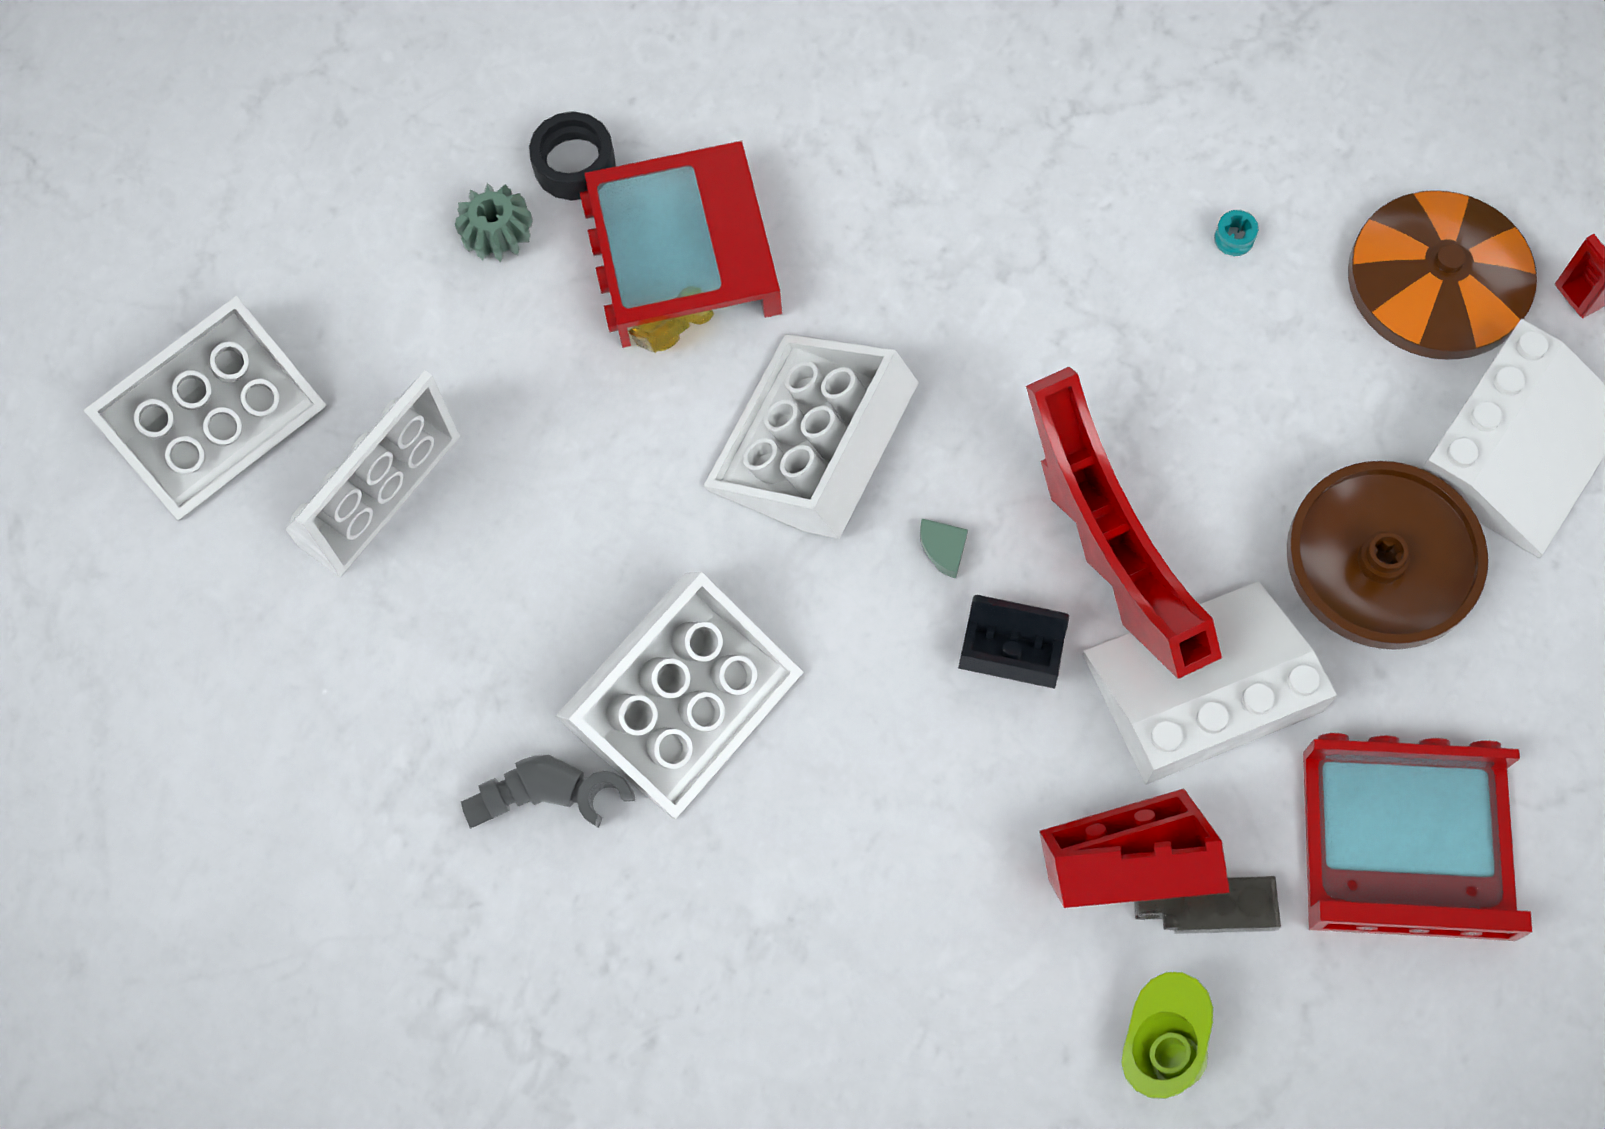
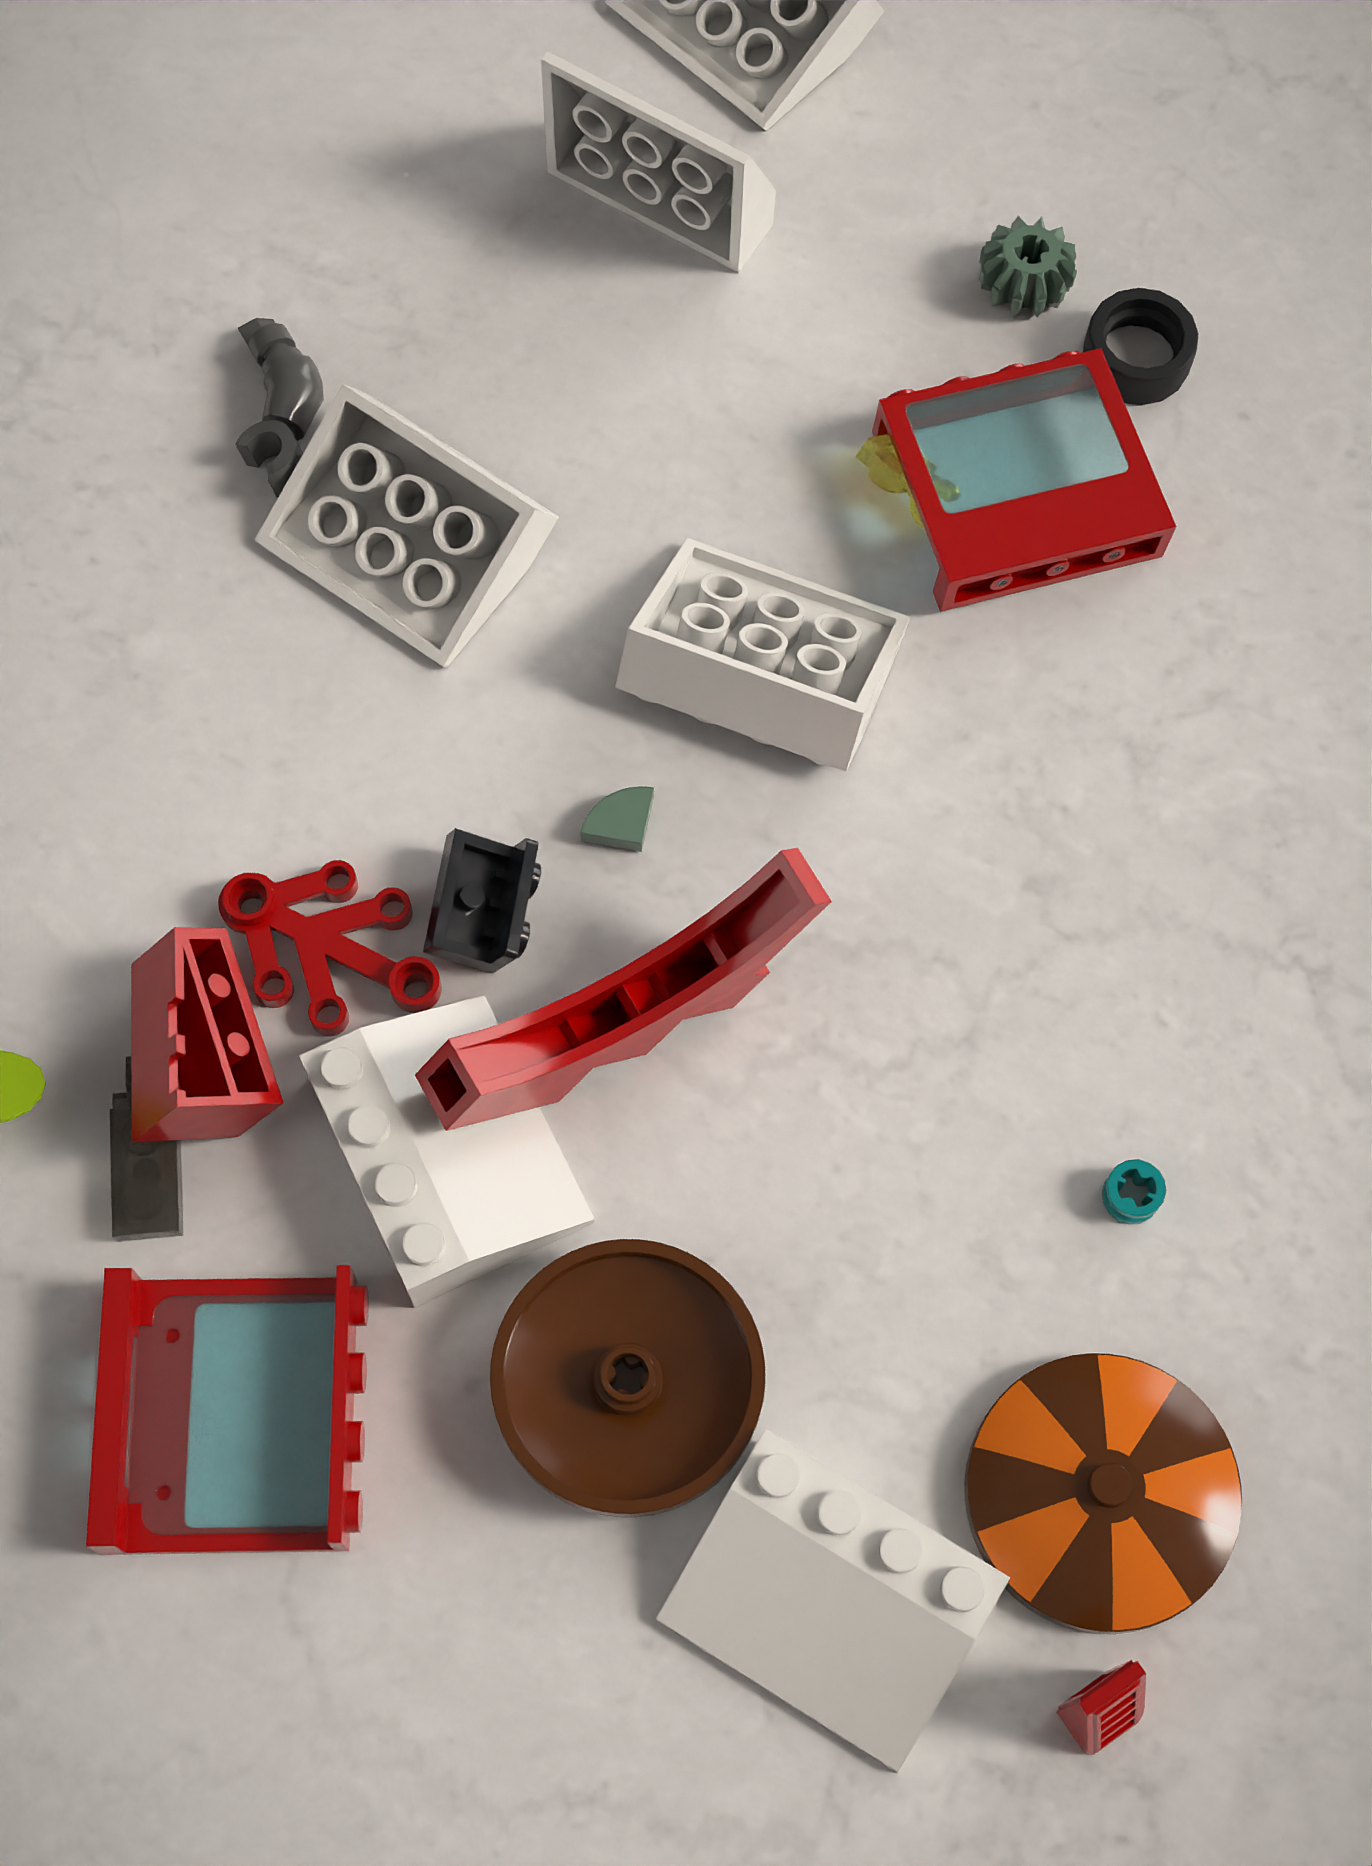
camera: 80 degrees right, 0 degrees up
(1035, 769) = (323, 937): none -> red plant

